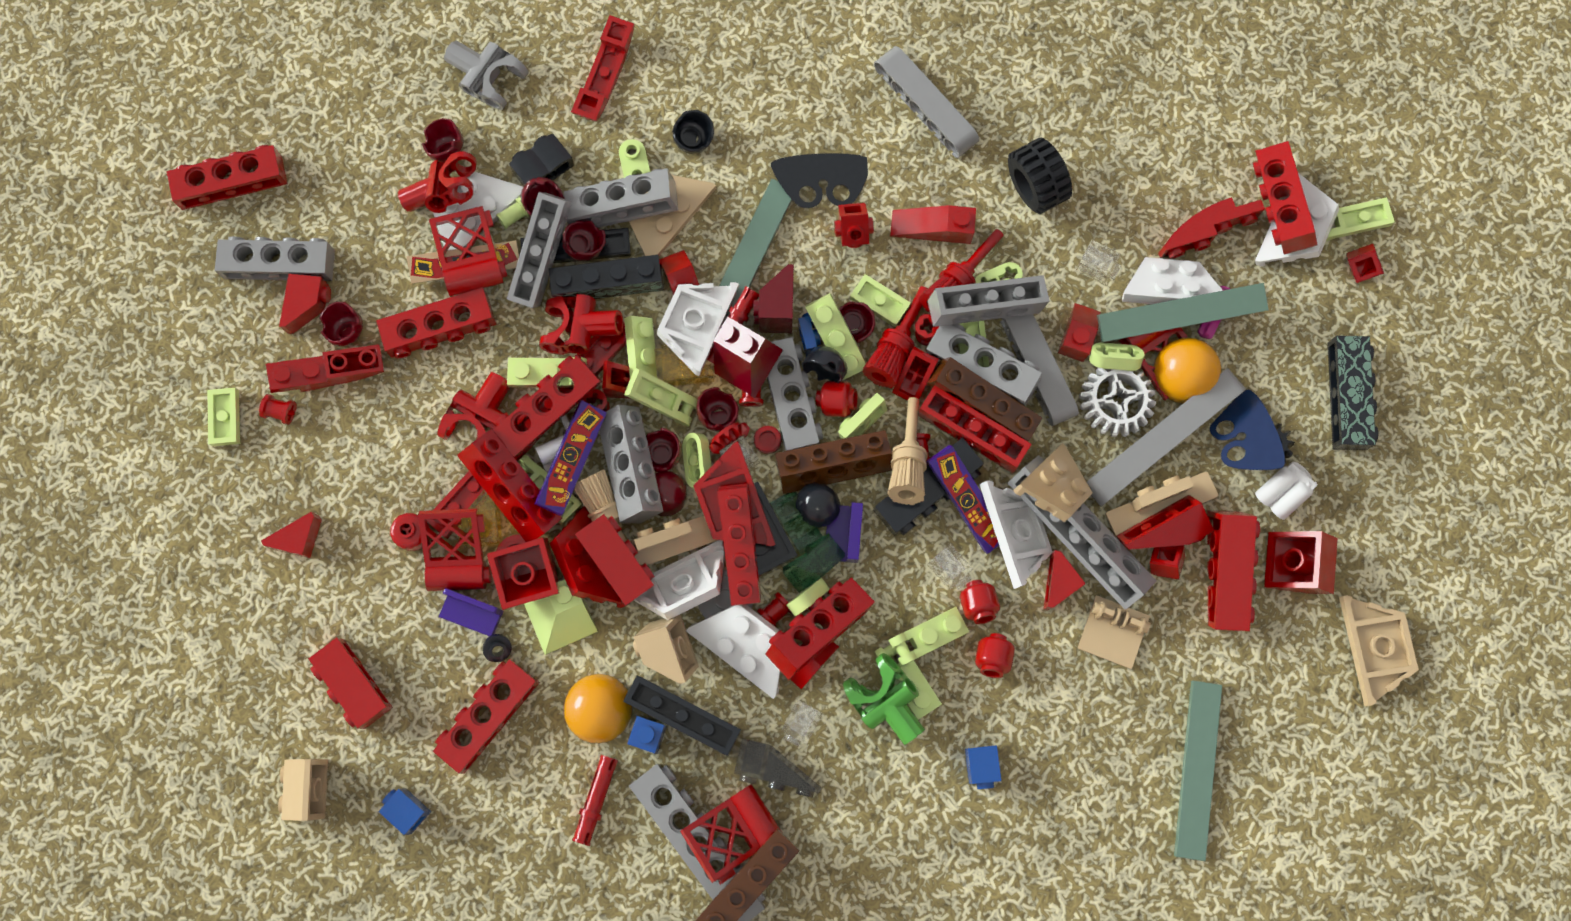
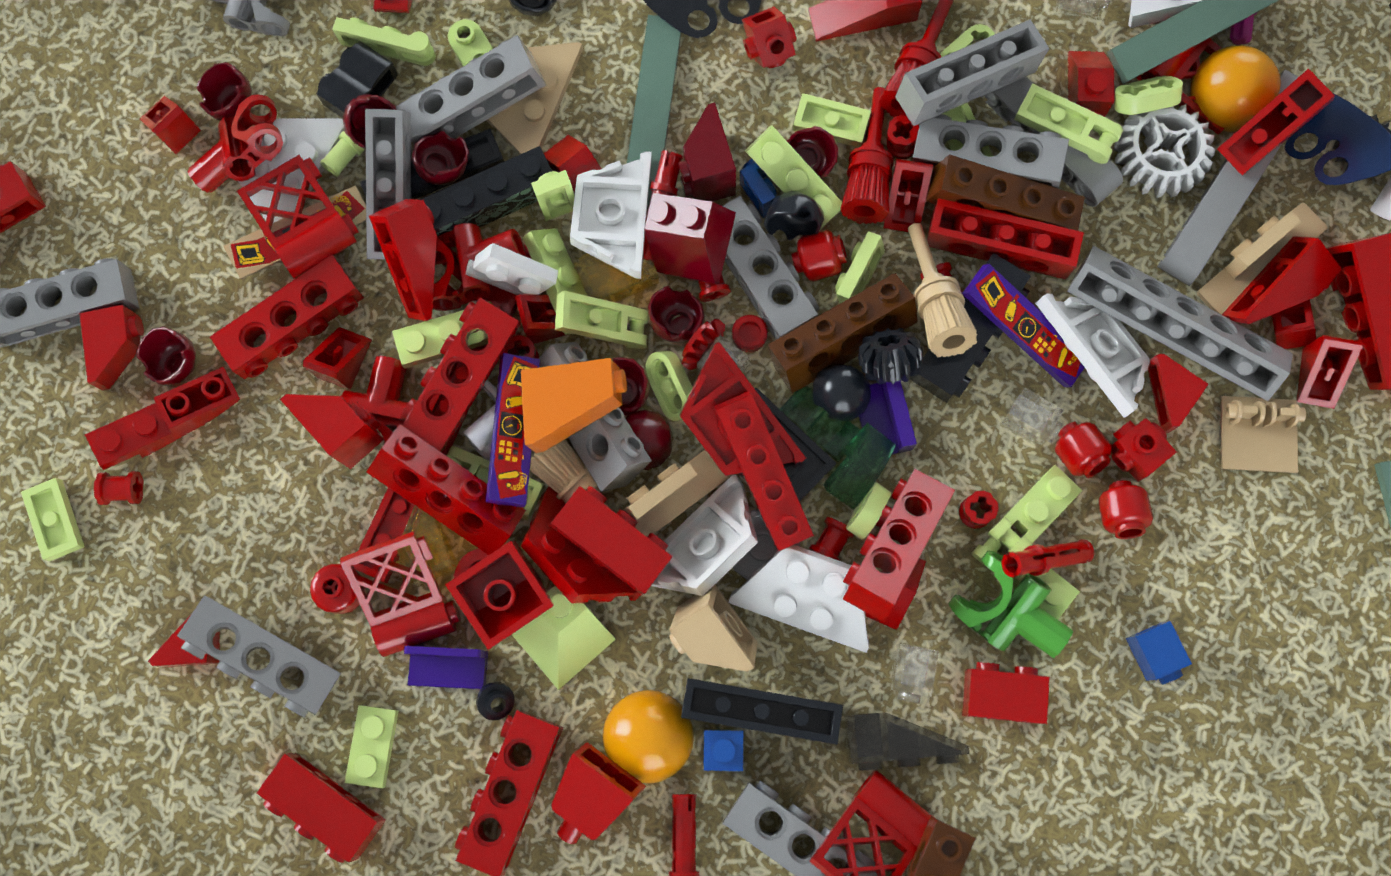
camera: 10 degrees left, 0 degrees up
(316, 524) = (212, 617): none -> light grey brick
(395, 151) = (170, 124): none -> red slope
(399, 652) = (371, 746): none -> yellowish green plate
(446, 416) = (339, 427): none -> red slope
(464, 363) = (338, 357): none -> red slope
(539, 301) = (410, 251): none -> red slope
(544, 736) = (592, 794): none -> red torso
(572, 138) = (386, 40): none -> yellowish green plate
(606, 342) = (511, 271): none -> white plate
(615, 449) = (567, 399): none -> orange slope
(656, 293) = (554, 194): none -> yellowish green plate
(860, 490) = (890, 356): none -> black gear
(861, 760) = (1006, 695): none -> red brick
(880, 623) = (986, 502): none -> red bush
(915, 670) = (1039, 559): none -> red pin
(1031, 614) = (1141, 448): none -> red brick
(1049, 358) = (1053, 113): none -> yellowish green plate
(1057, 485) = (1133, 272): tan wing -> none
(1177, 601) = (1326, 369): none -> red slope
(1201, 407) = (1276, 122): none -> red slope

